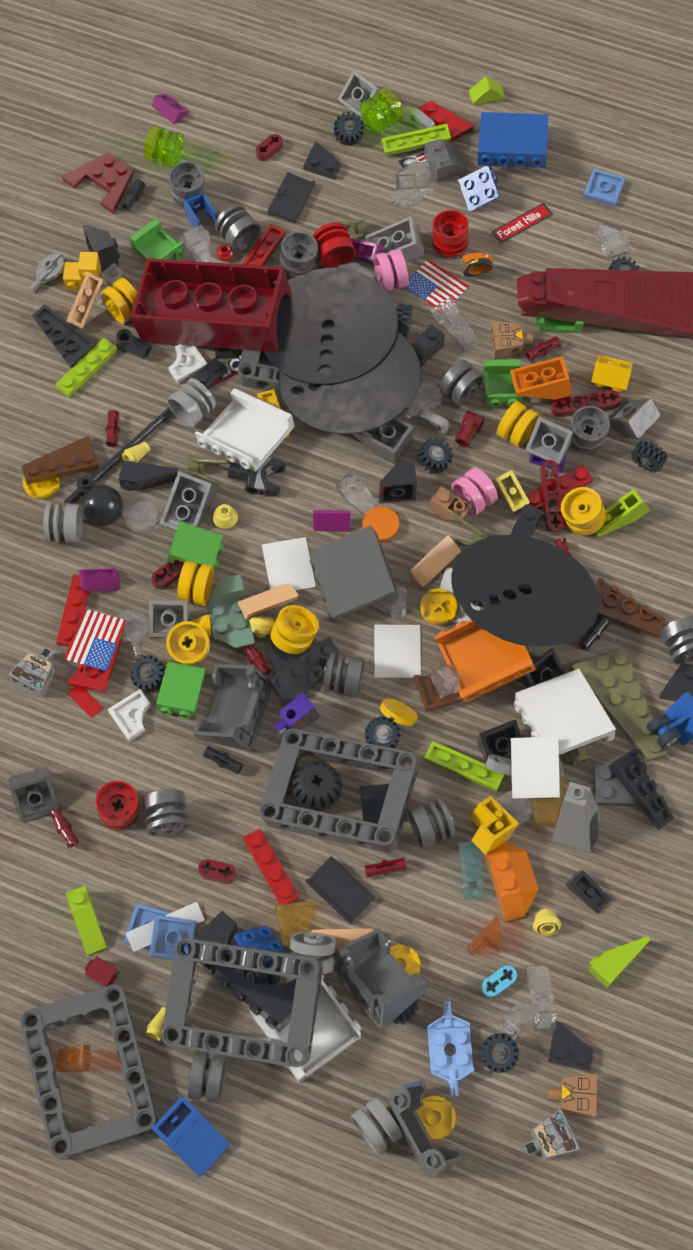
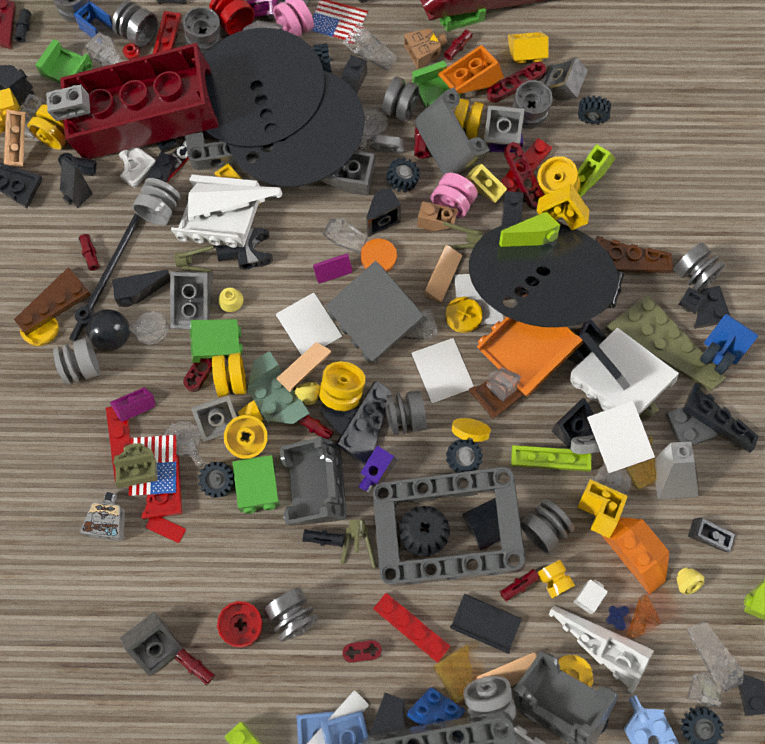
camera: 20 degrees left, 5 degrees up
(79, 634) = (135, 466): none -> olive slope
(86, 367) = (40, 203): lime plate -> none
(122, 361) = (72, 184): none -> black slope
(130, 713) = (214, 525): white tile -> none
(136, 452) = (120, 268): light yellow cone -> none
(145, 284) = (68, 102): none -> light grey brick
(255, 420) = (224, 198): none -> white wedge
(255, 765) = (356, 531): none -> olive plant
(420, 871) = (556, 579): none -> yellow wheel
(447, 901) = (590, 596): none -> white brick
(453, 964) = (617, 653): none -> white wedge
(465, 929) = (617, 616): none -> clear blue piece
(471, 870) = (599, 557): clear light blue plate -> none
(487, 434) = (446, 137): none -> dark grey windscreen
(502, 986) = (674, 657): medium azure beam -> none
(532, 550) = (531, 232): none -> lime slope
(547, 691) = (605, 360): none -> black tile
(576, 535) = (565, 204): none -> yellow brick
(664, 669) = (691, 300): none -> black tile

